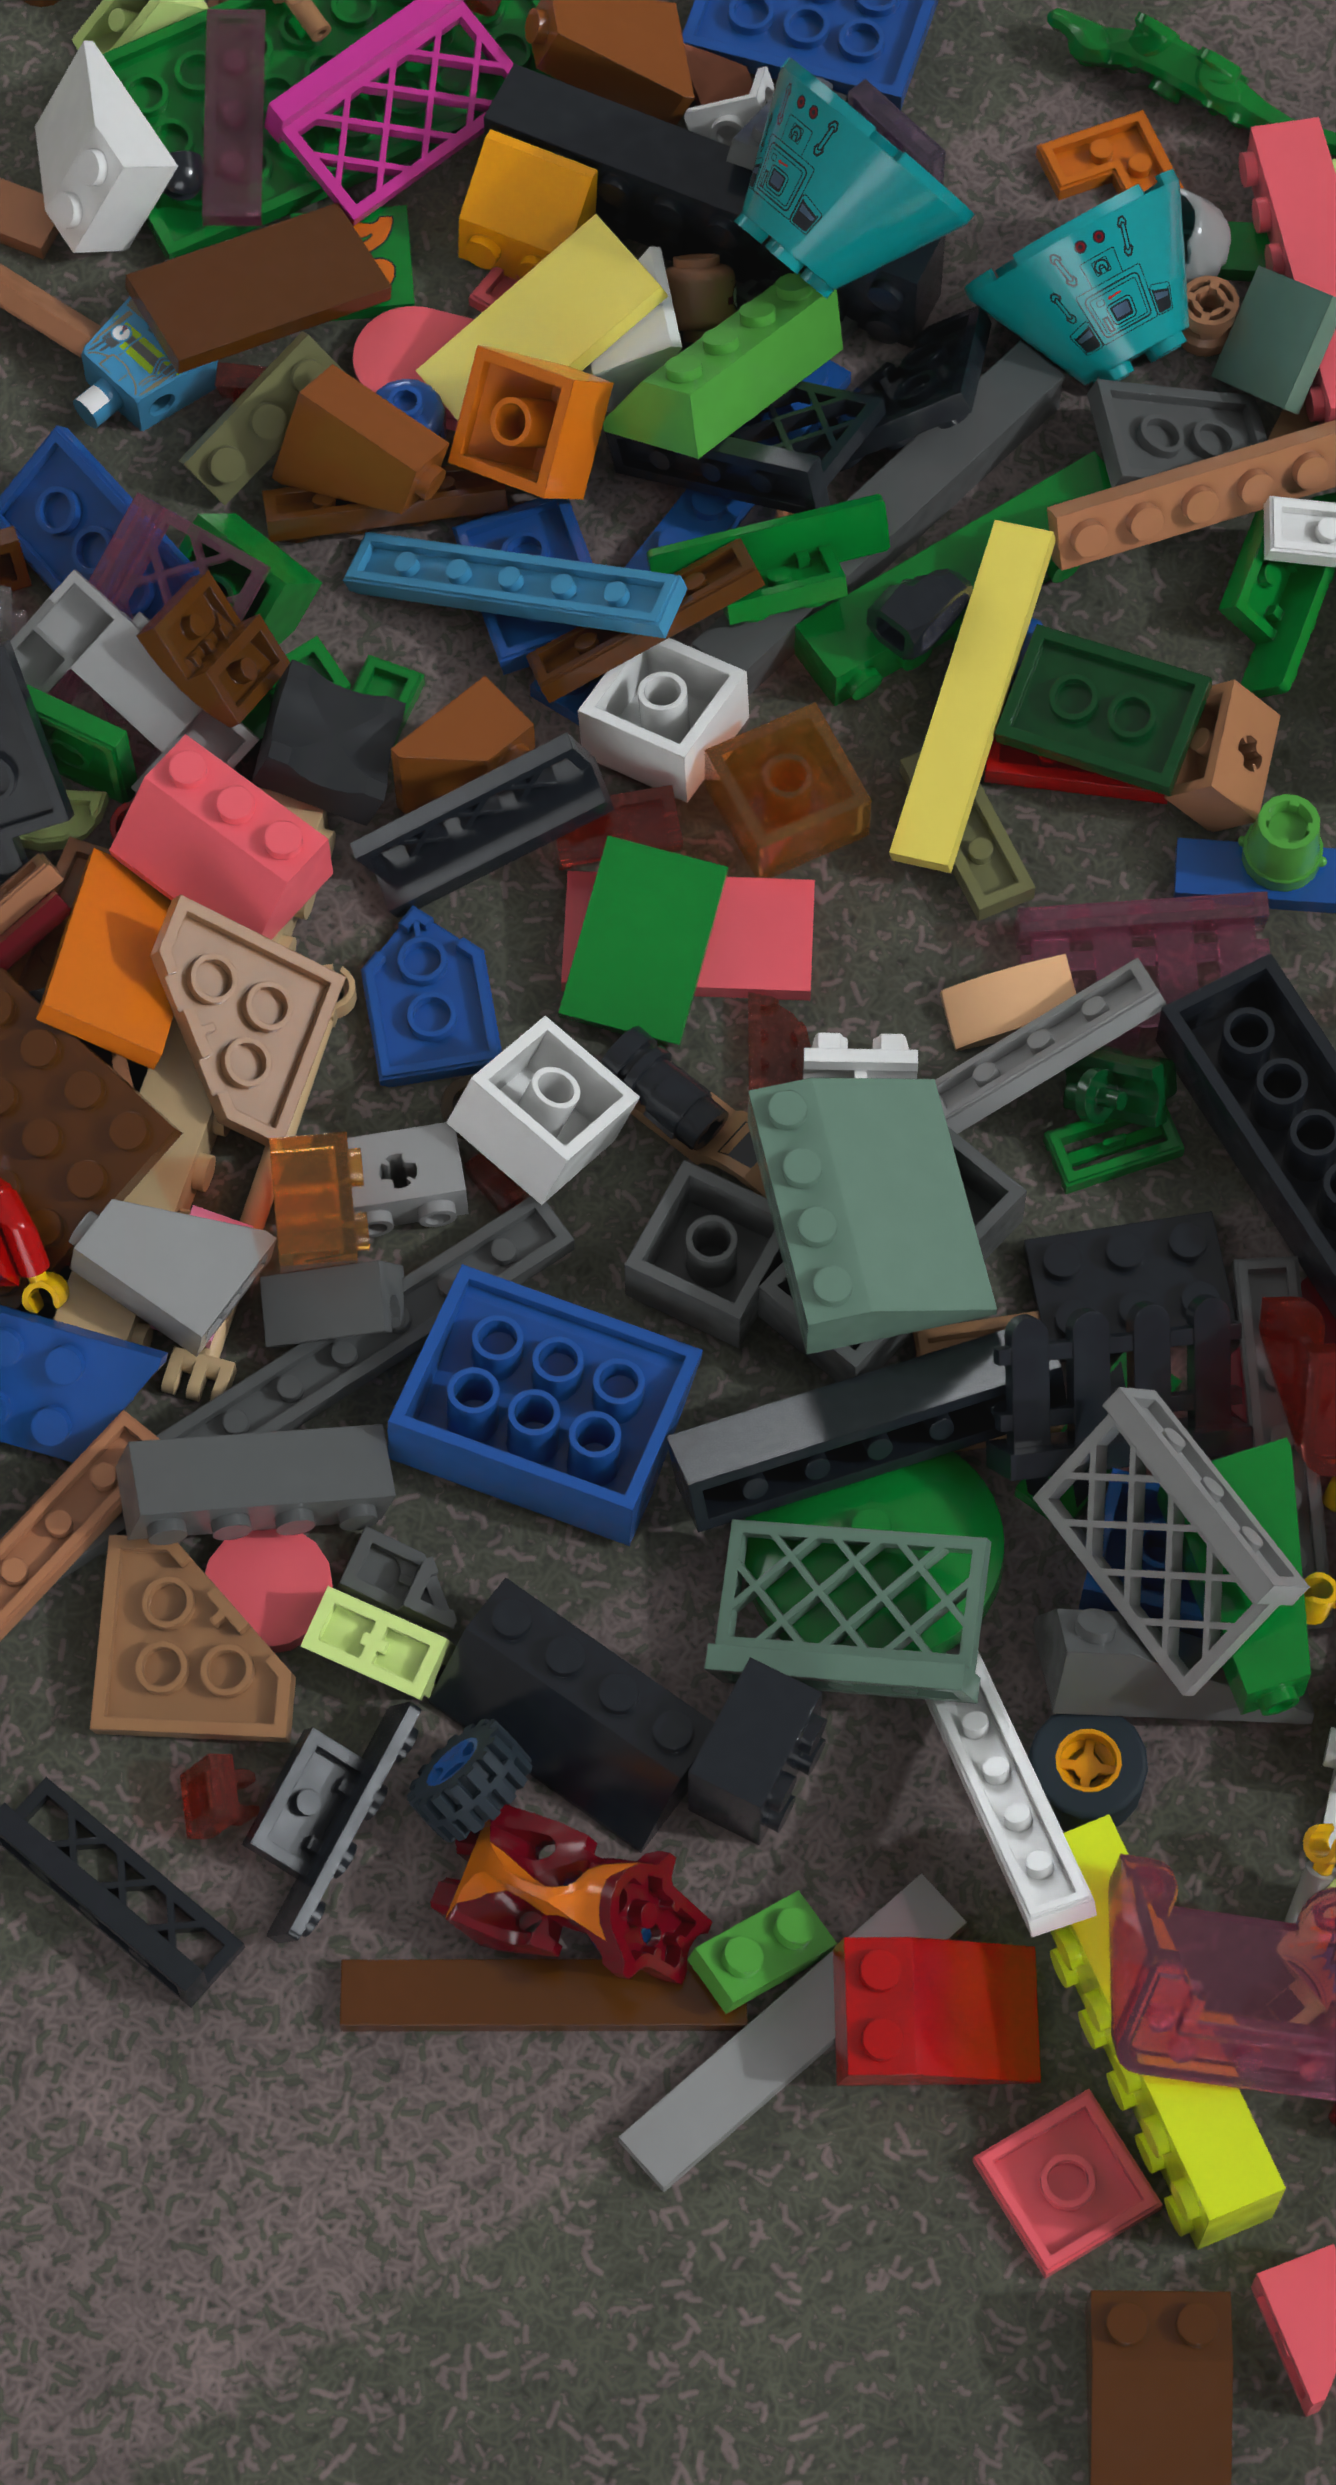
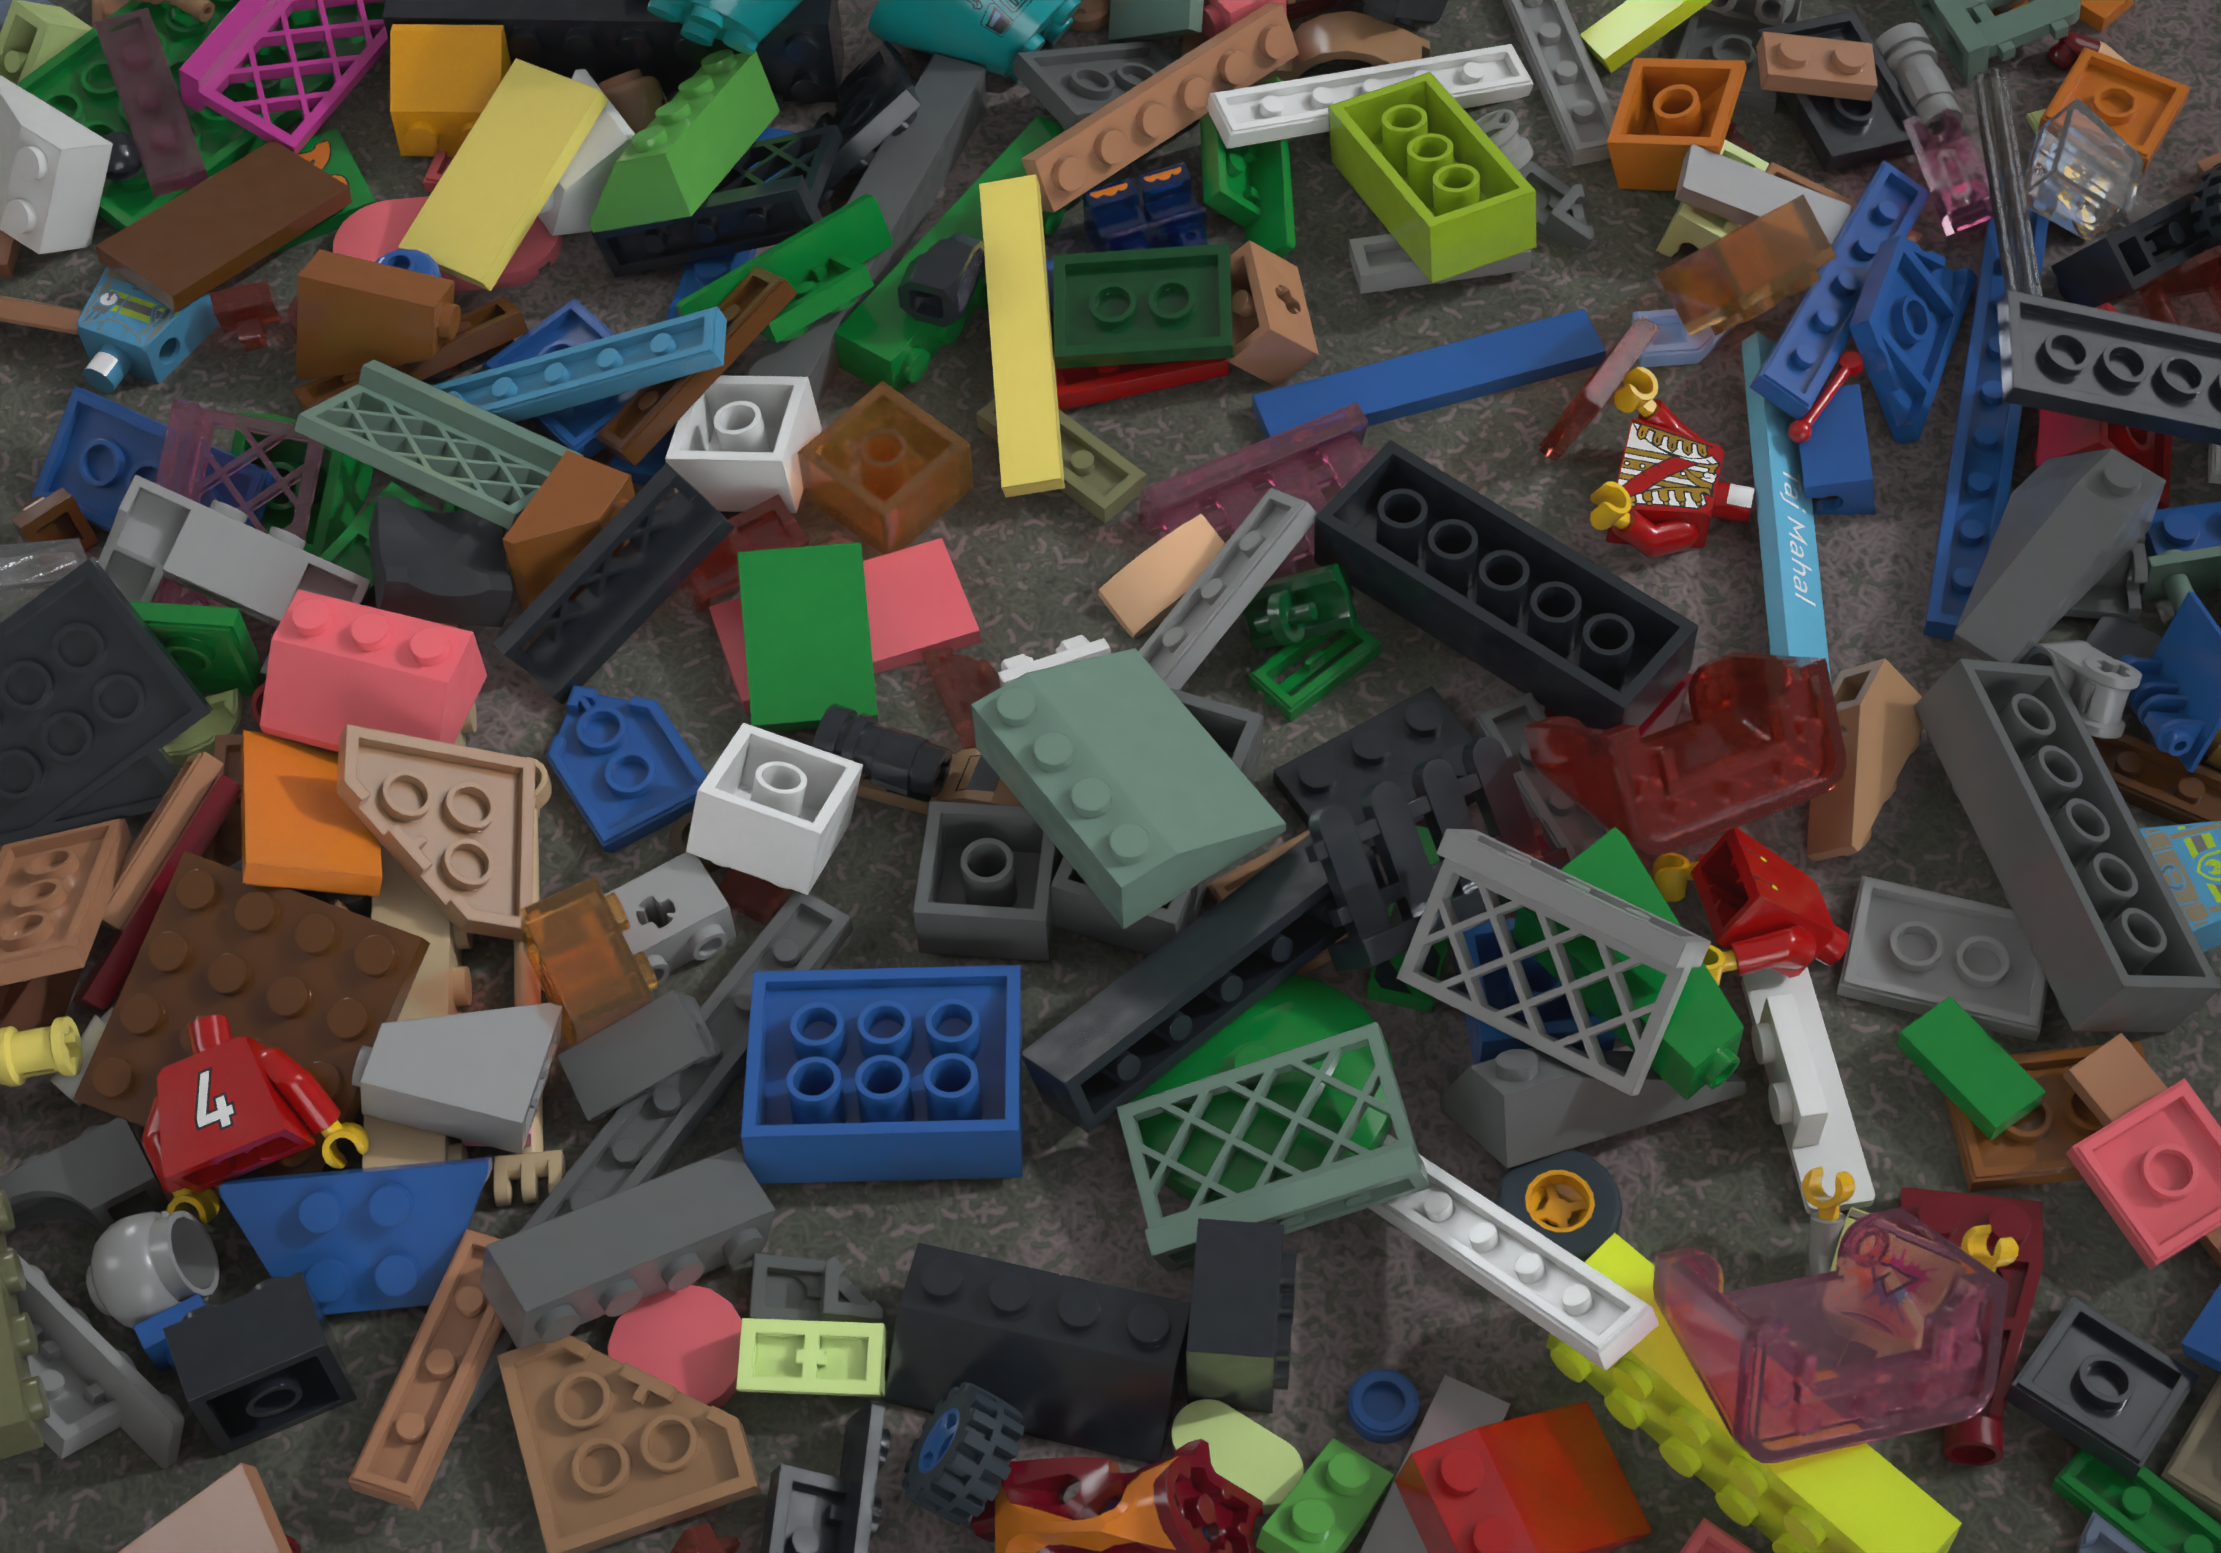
camera: 20 degrees left, 10 degrees down
(212, 653) = (294, 517): reddish brown slope -> none
(255, 422) = (263, 334): olive plate -> none
(383, 596) = (435, 442): none -> sand green fence
(530, 423) = (523, 241): orange slope -> none
(710, 1869) = (1241, 1450): none -> yellowish green tile
(856, 1878) = (1382, 1406): none -> blue tile
(1183, 607) = (1152, 216): none -> clear blue hips
(1284, 844) = (1351, 361): bright green piece -> none

